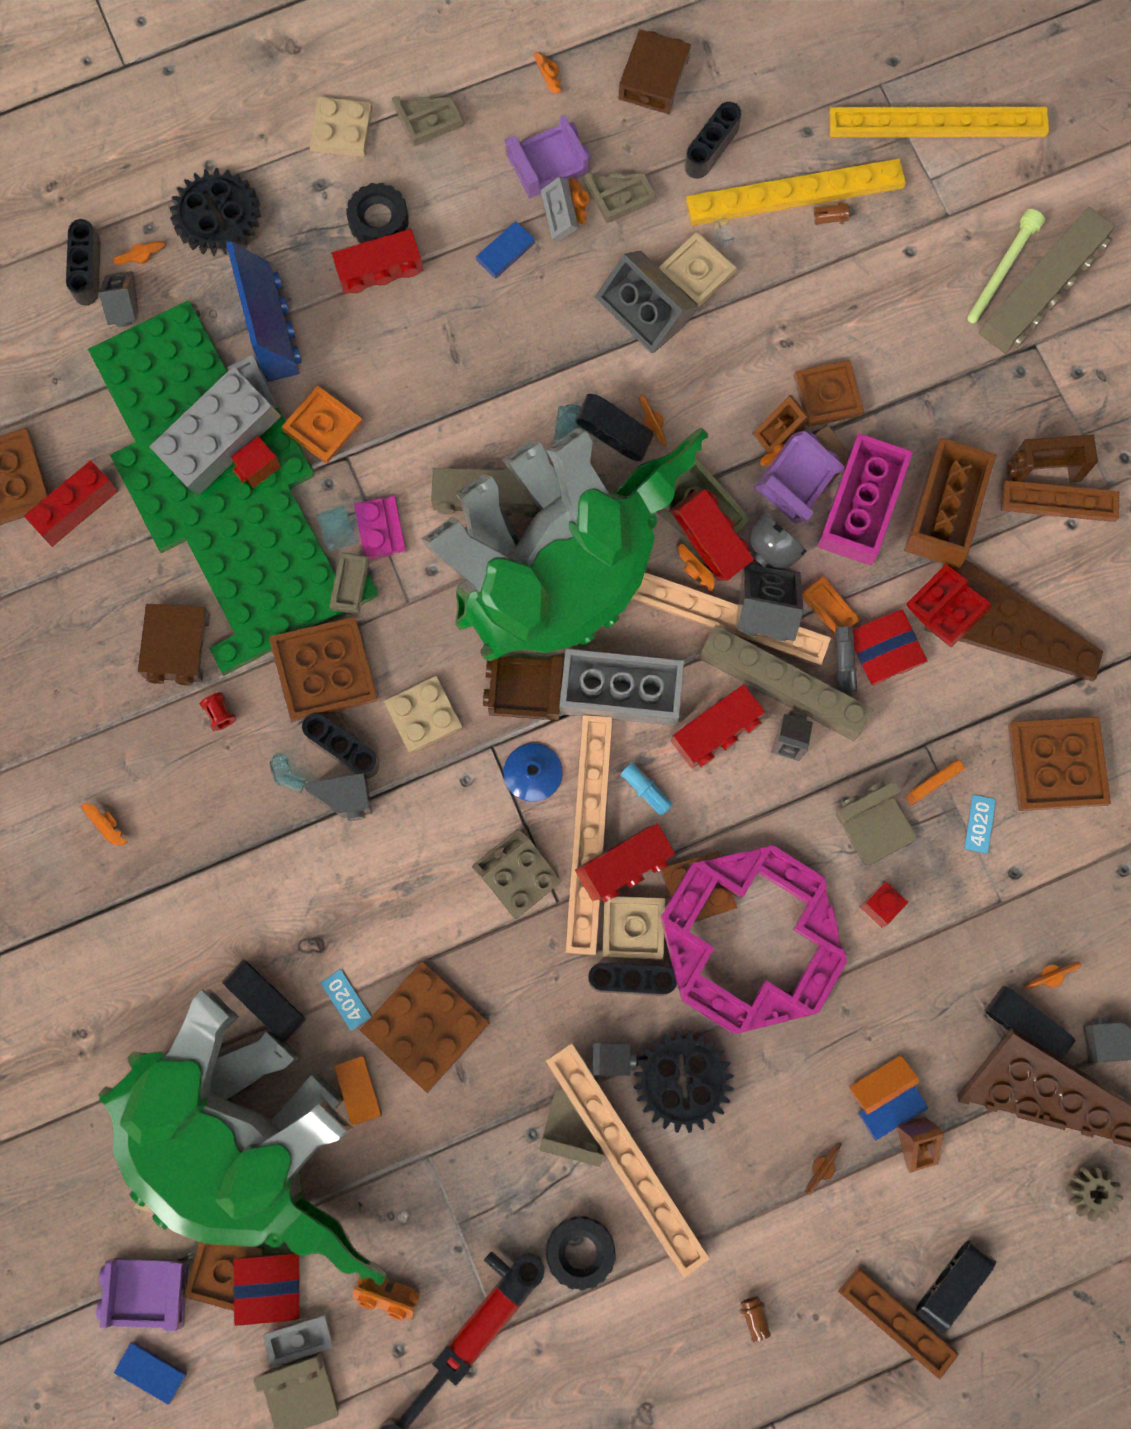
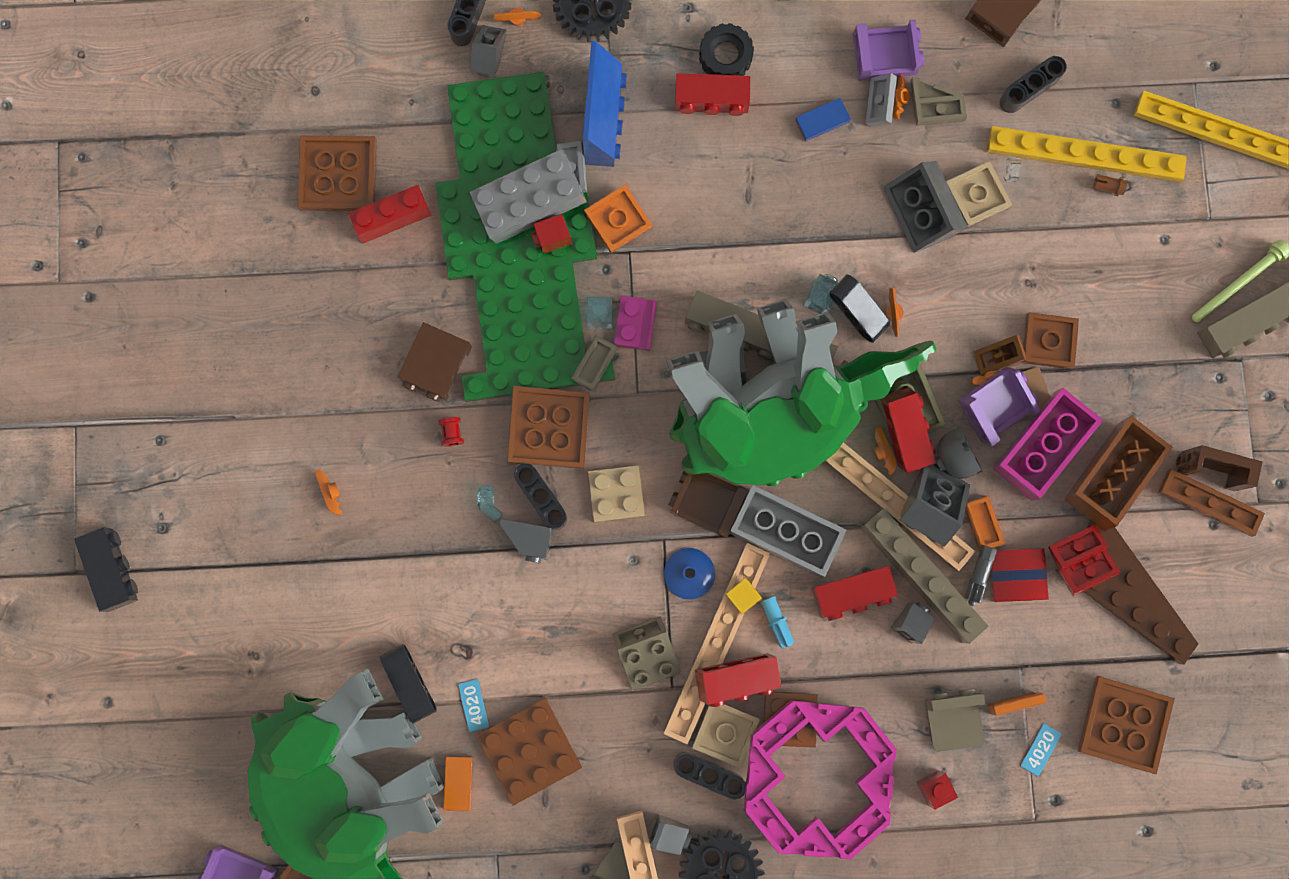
camera: 15 degrees right, 5 degrees up
(599, 772) = (743, 596): none -> yellow tile

